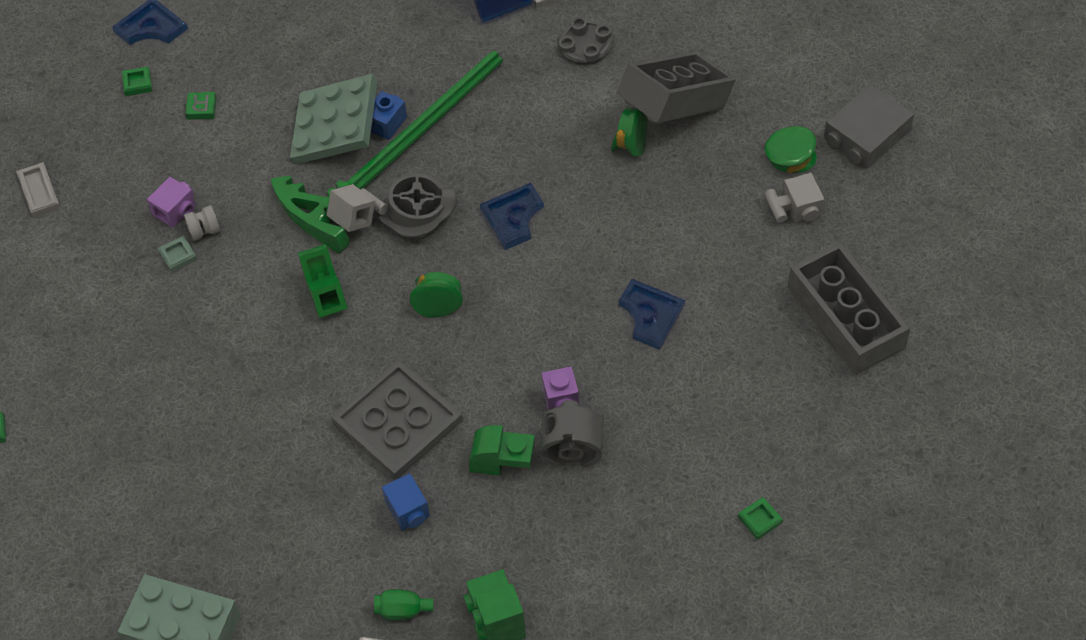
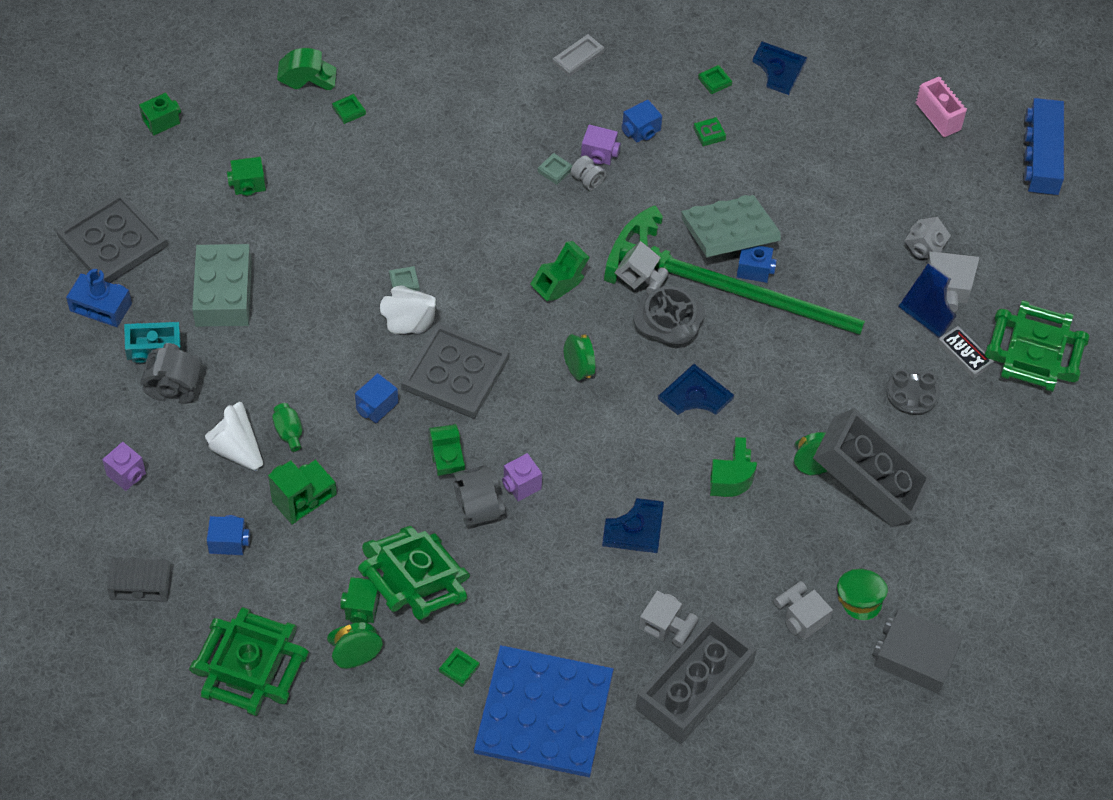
camera: 65 degrees right, 0 degrees up
(34, 558) = (246, 176): none -> green brick
(161, 156) = (641, 121): none -> blue brick
(254, 438) = (404, 277): none -> sand green tile
(304, 438) = (408, 310): none -> white hat
(624, 205) = (733, 476): none -> green brick
(643, 520) = (412, 569): none -> green brick
(655, 587) = (360, 601): none -> green brick
(710, 606) = (354, 644): none -> green piece
(767, 317) = (663, 616): none -> light grey brick
(834, 455) = (544, 711): none -> blue plate

